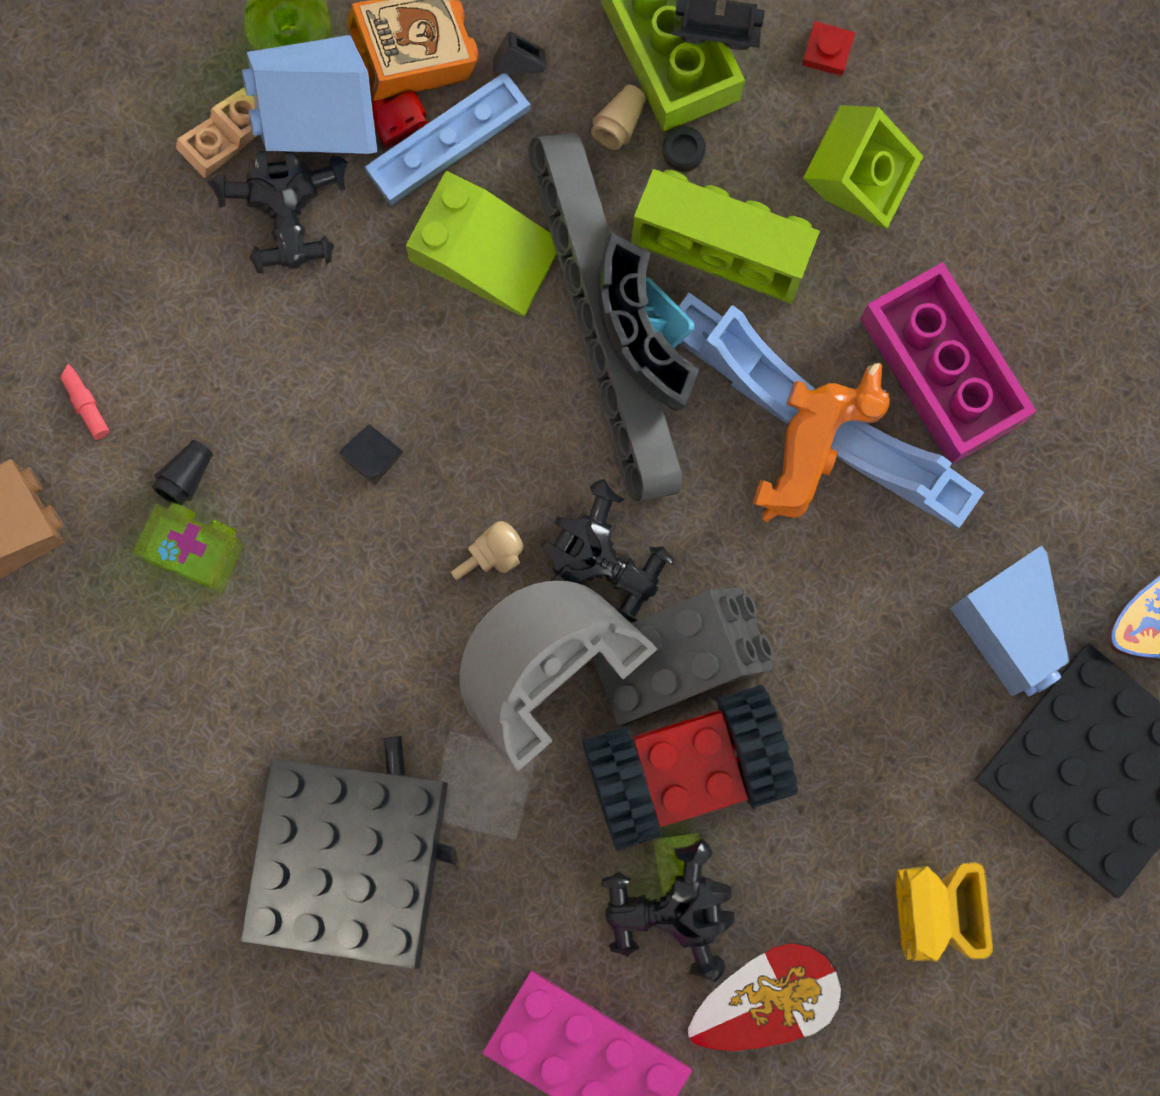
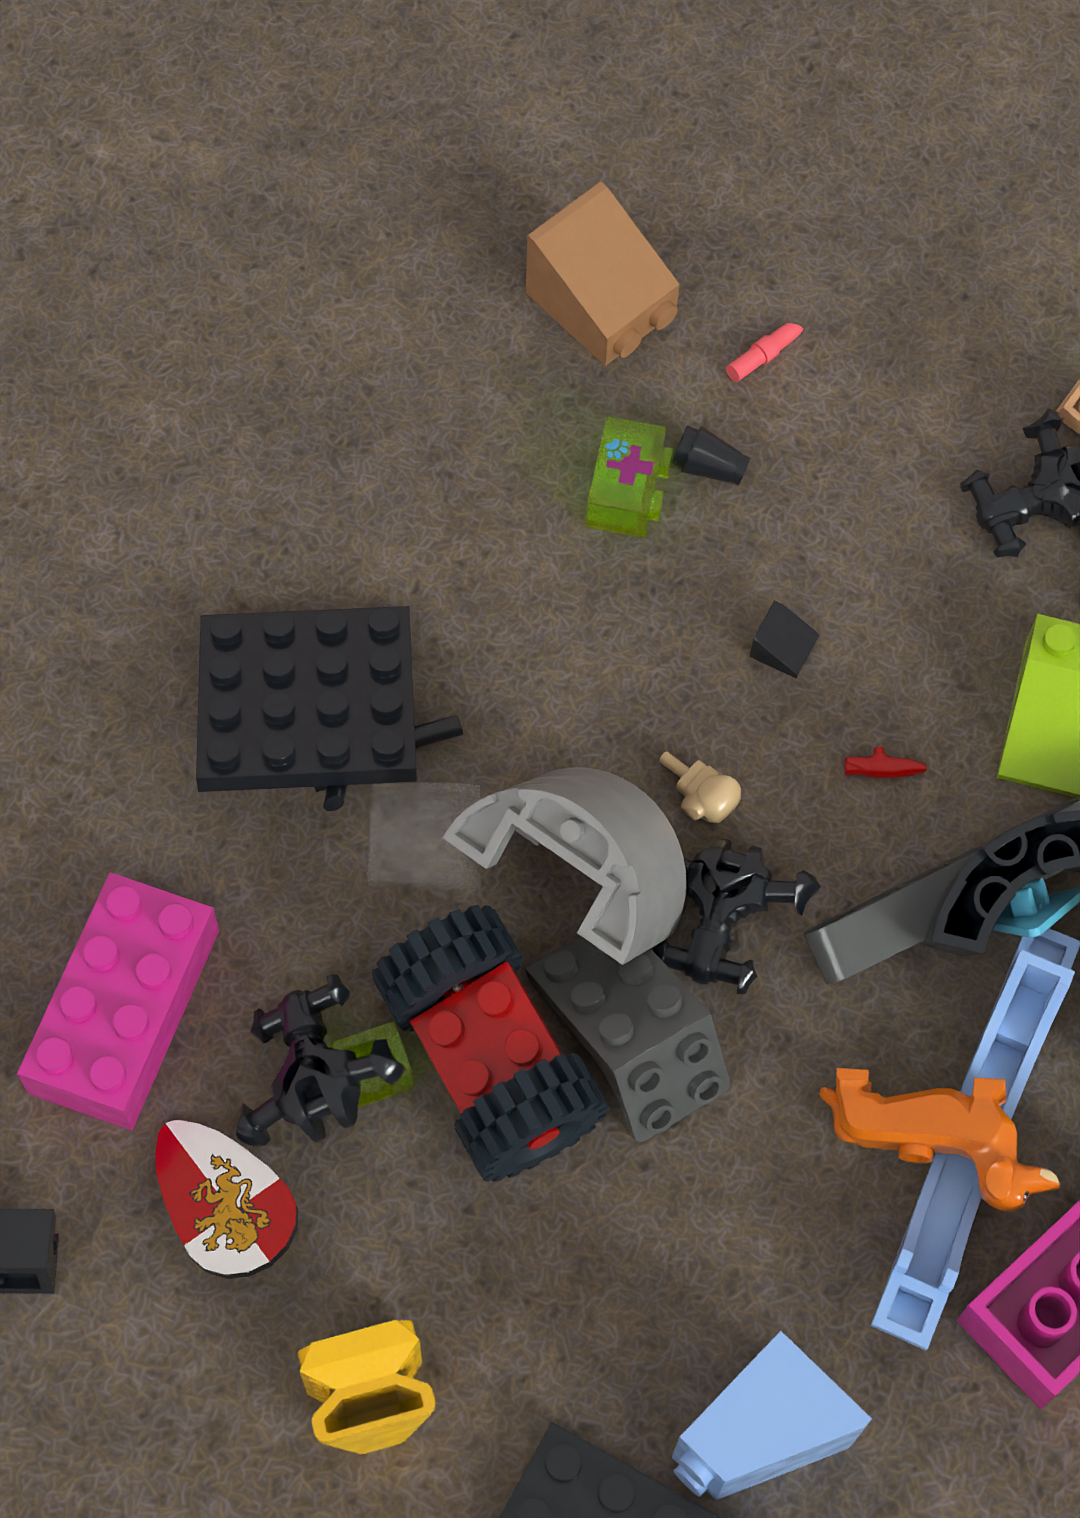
camera: 80 degrees right, 15 degrees down
(498, 403) = (882, 766): none -> red helmet

